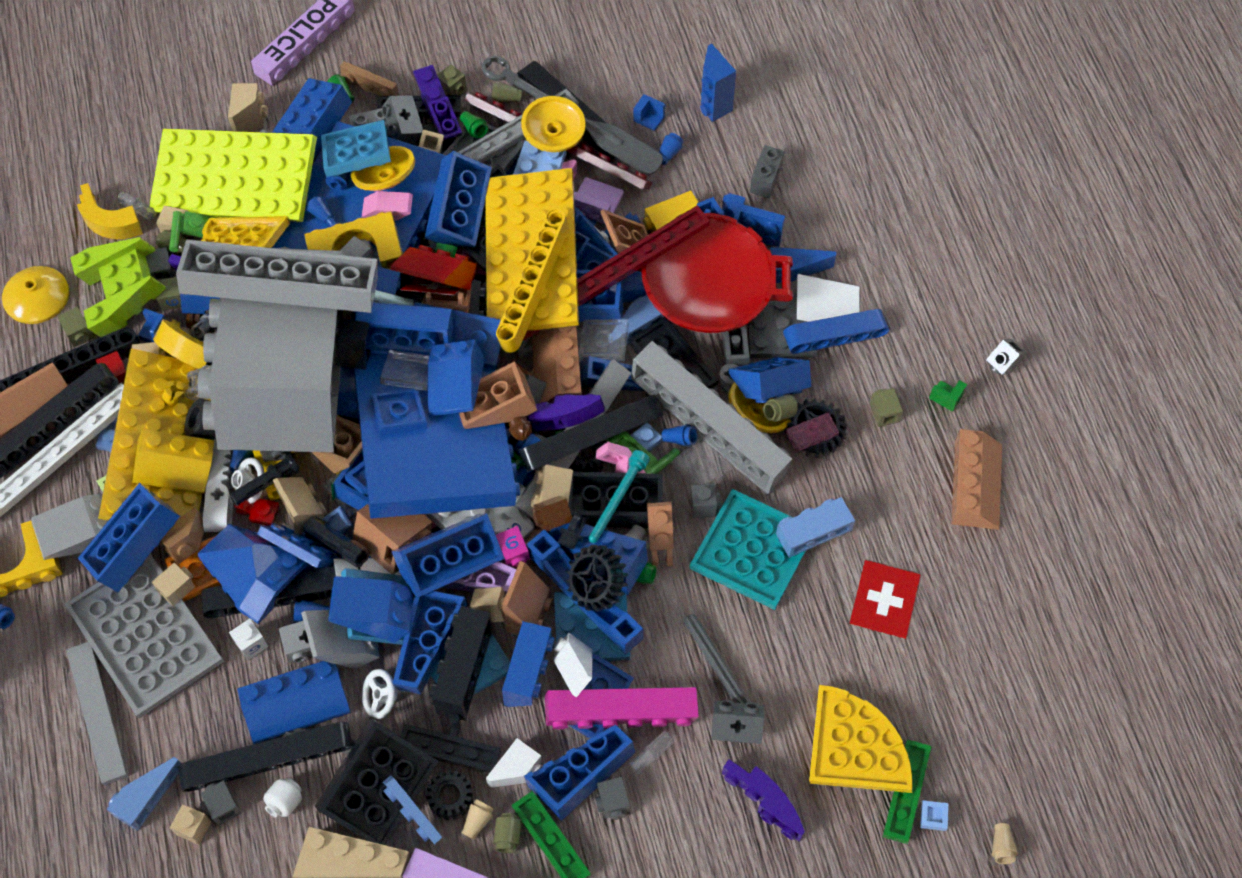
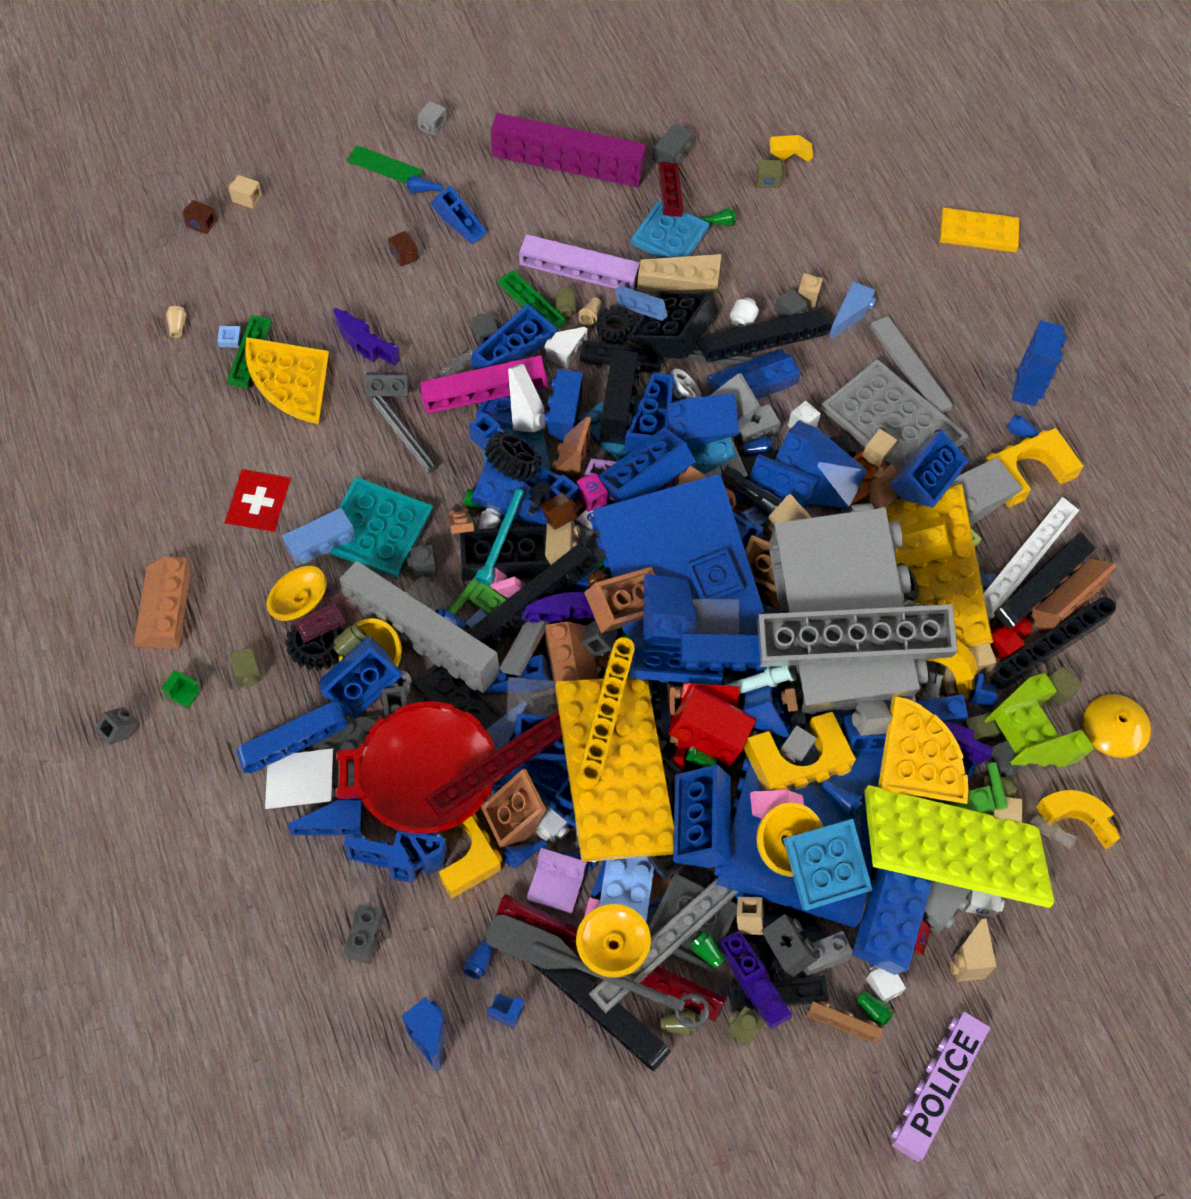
camera: 170 degrees right, 0 degrees up
(490, 601) = (604, 449): tan brick -> none
(847, 469) = (296, 593): none -> yellow dish

